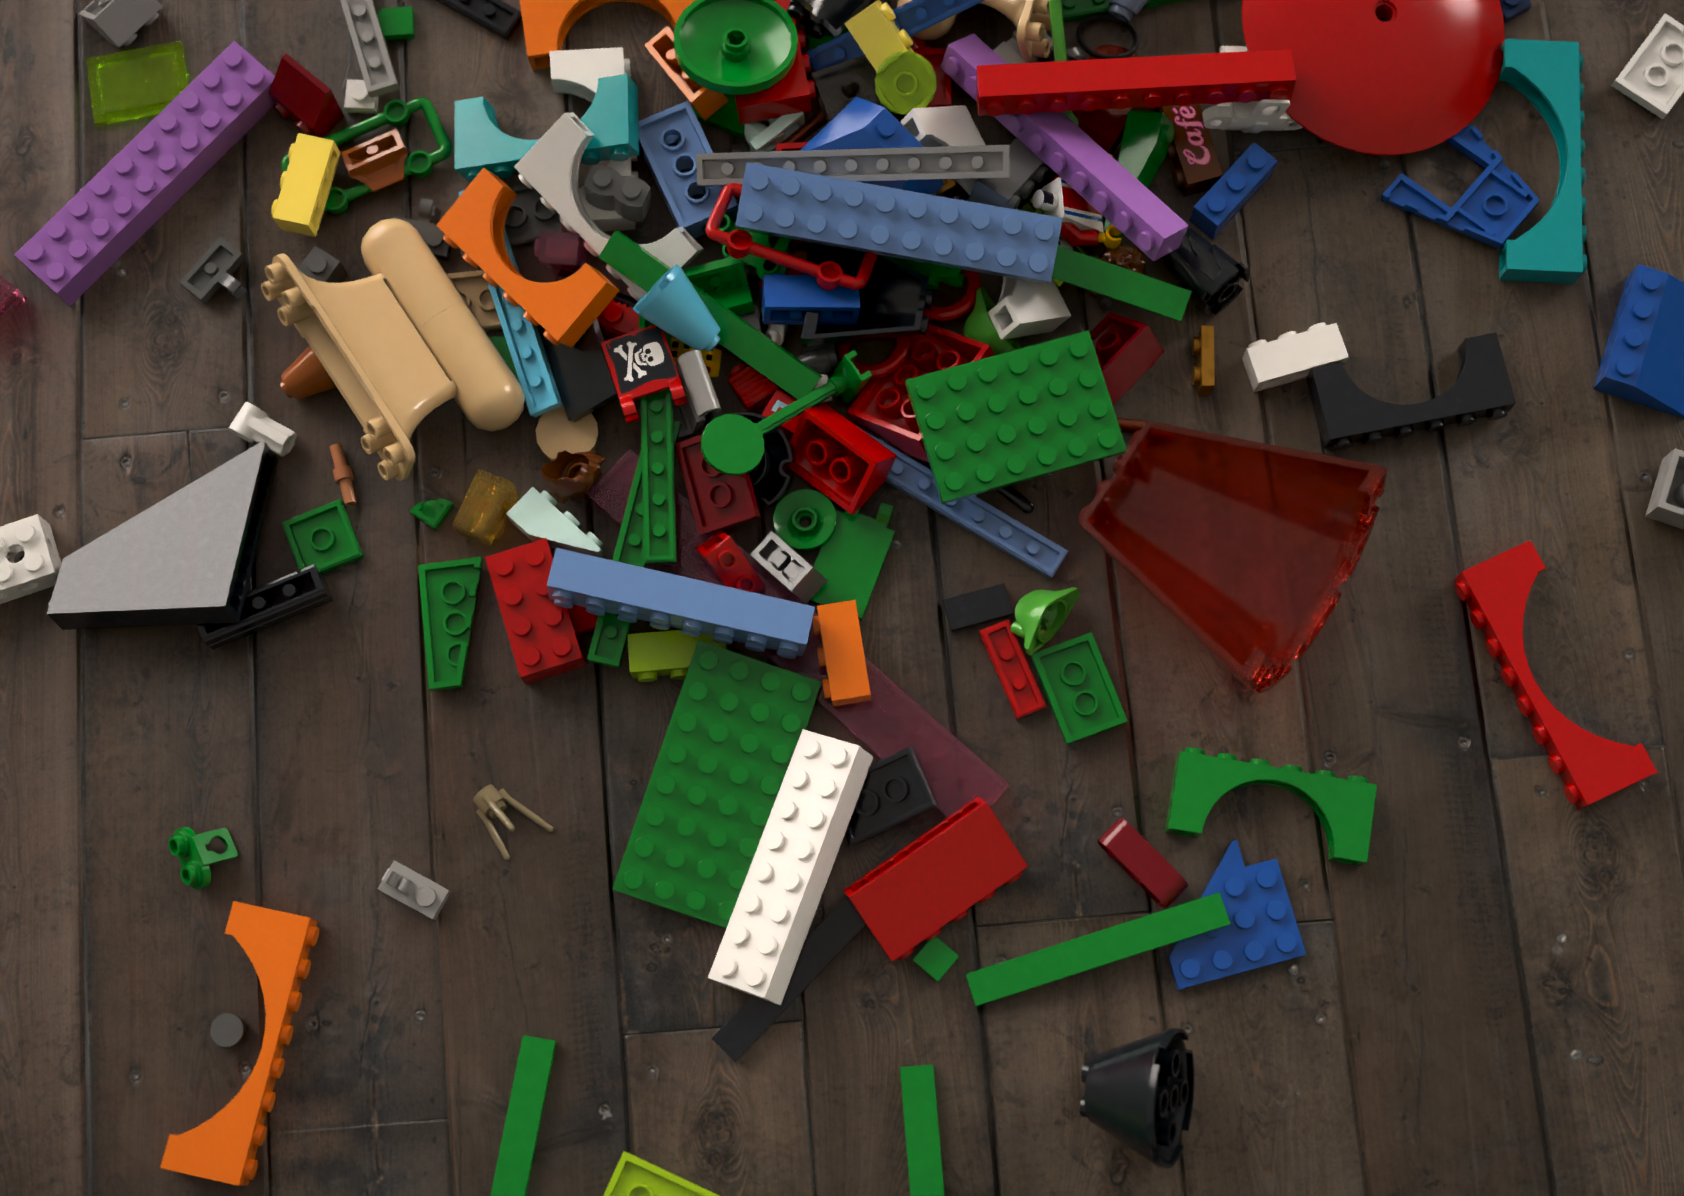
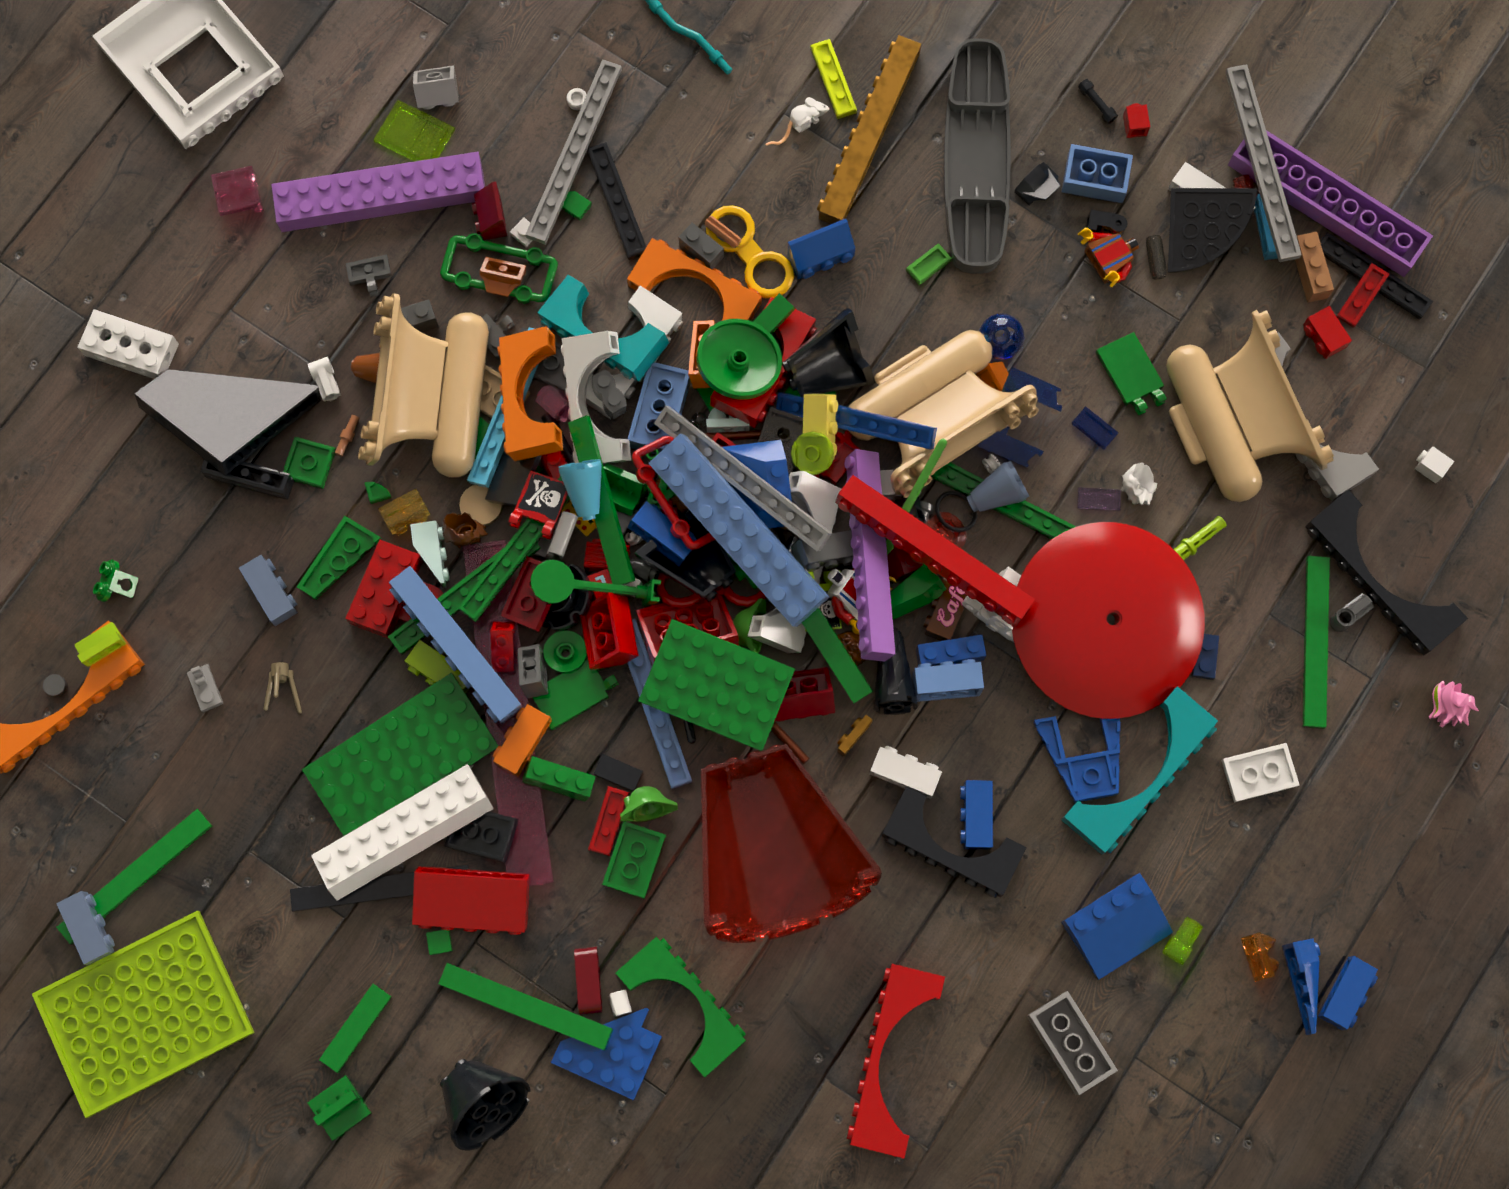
camera: 35 degrees right, 0 degrees up
(246, 936) = (99, 644): none -> lime panel
(306, 184) = (451, 261): light yellow brick -> none
(398, 717) = (269, 589): none -> sand blue brick
(920, 664) = (558, 779): none -> green brick
(1198, 860) = (619, 1003): none -> white brick
(1261, 217) = (948, 680): none -> medium blue brick
(1410, 341) = (977, 815): none -> blue brick

